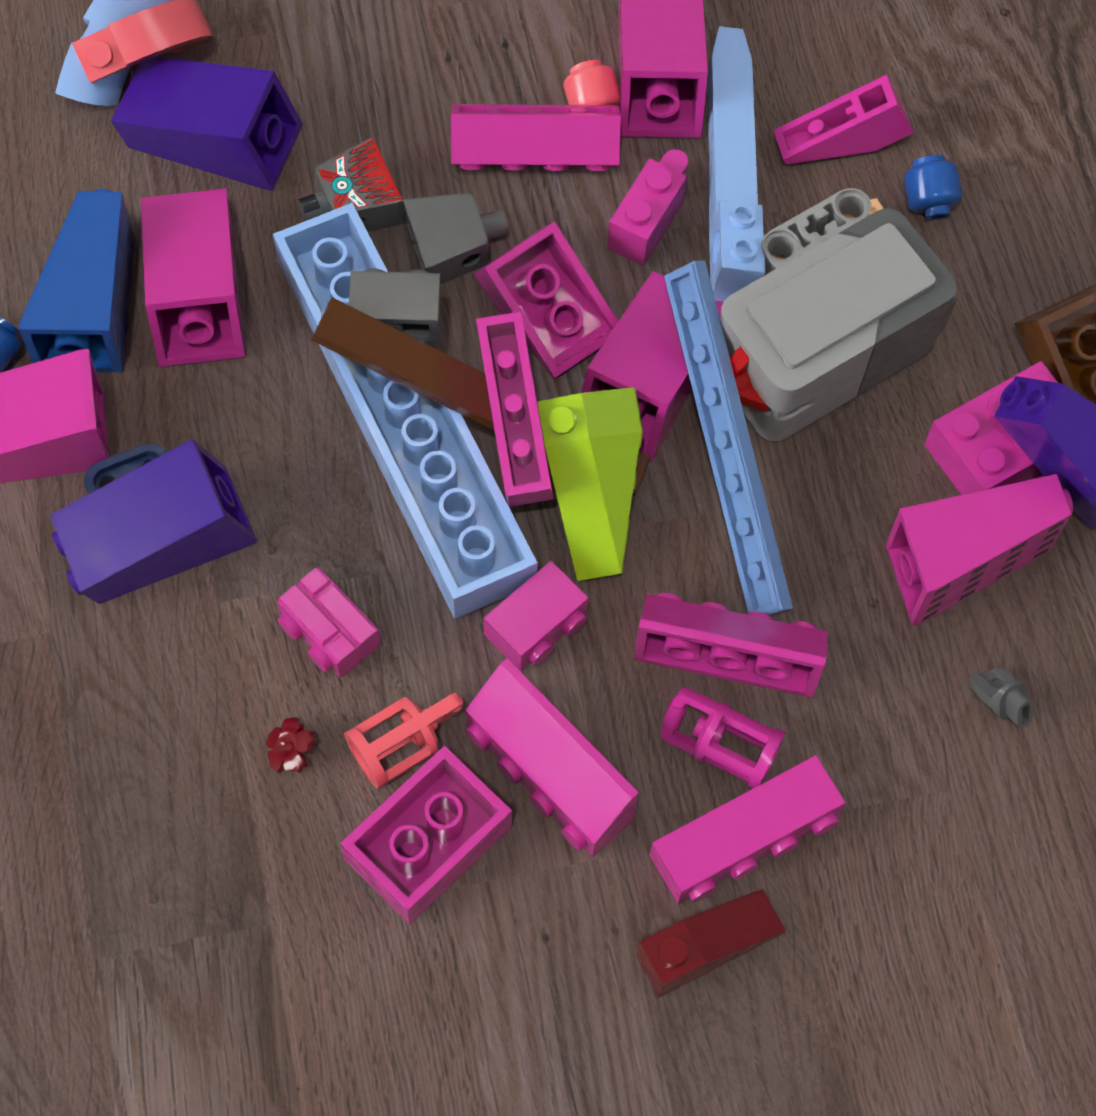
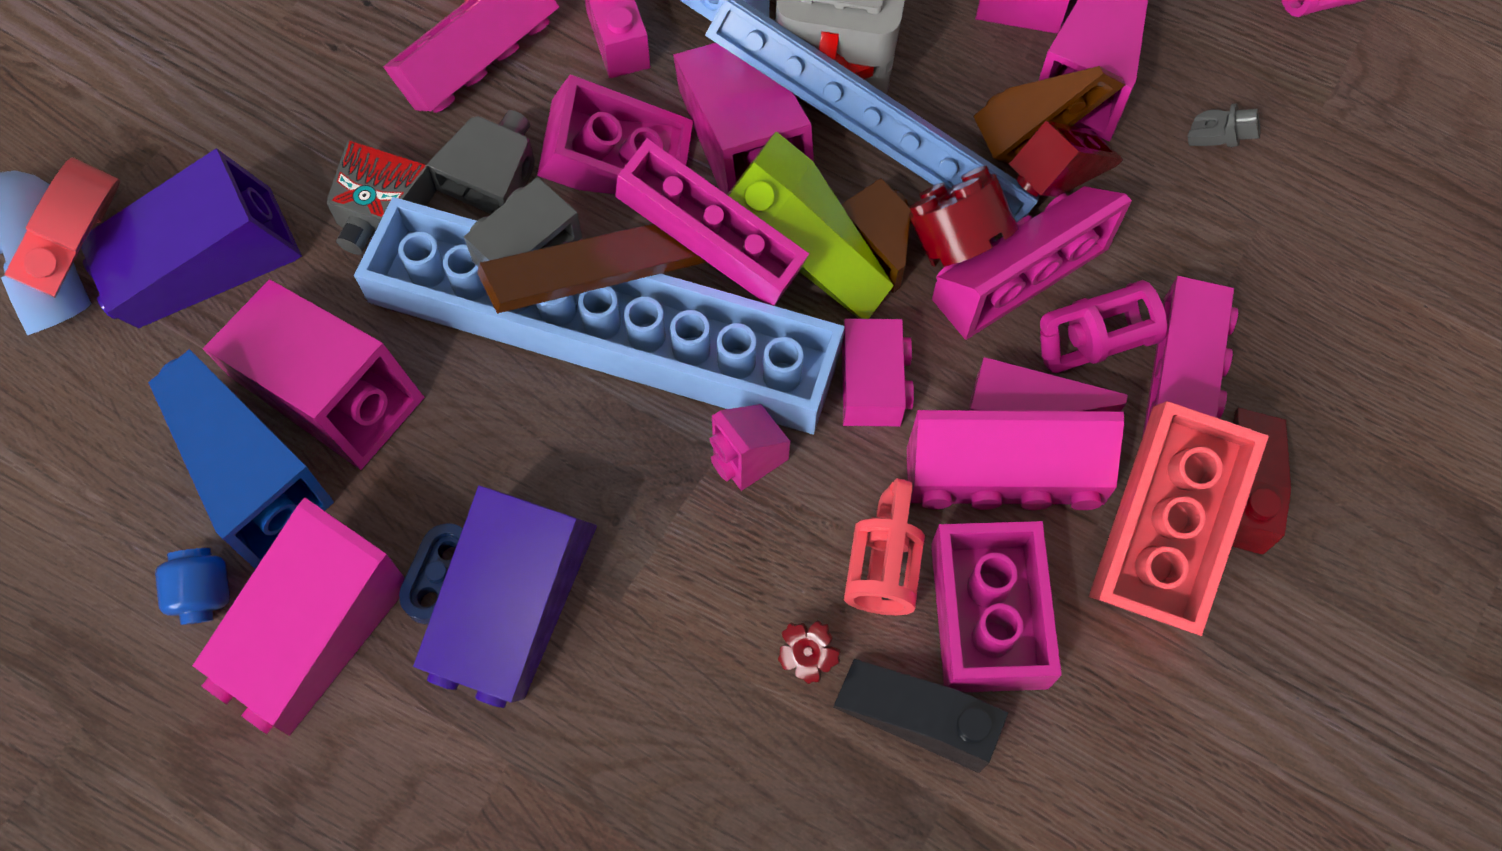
camera: 45 degrees left, 0 degrees up
(312, 855) = (923, 713): none -> black slope
(328, 623) = (729, 529): dark pink brick -> none
(395, 579) = (747, 444): none -> dark pink slope
(602, 899) = (1178, 517): none -> coral brick
(611, 727) = (1016, 388): none -> dark pink slope
(657, 527) = (884, 224): none -> reddish brown slope
(710, 569) = (962, 219): none -> dark red brick
(840, 599) = (1062, 159): none -> dark red slope
(849, 549) = (1020, 111): none -> reddish brown slope

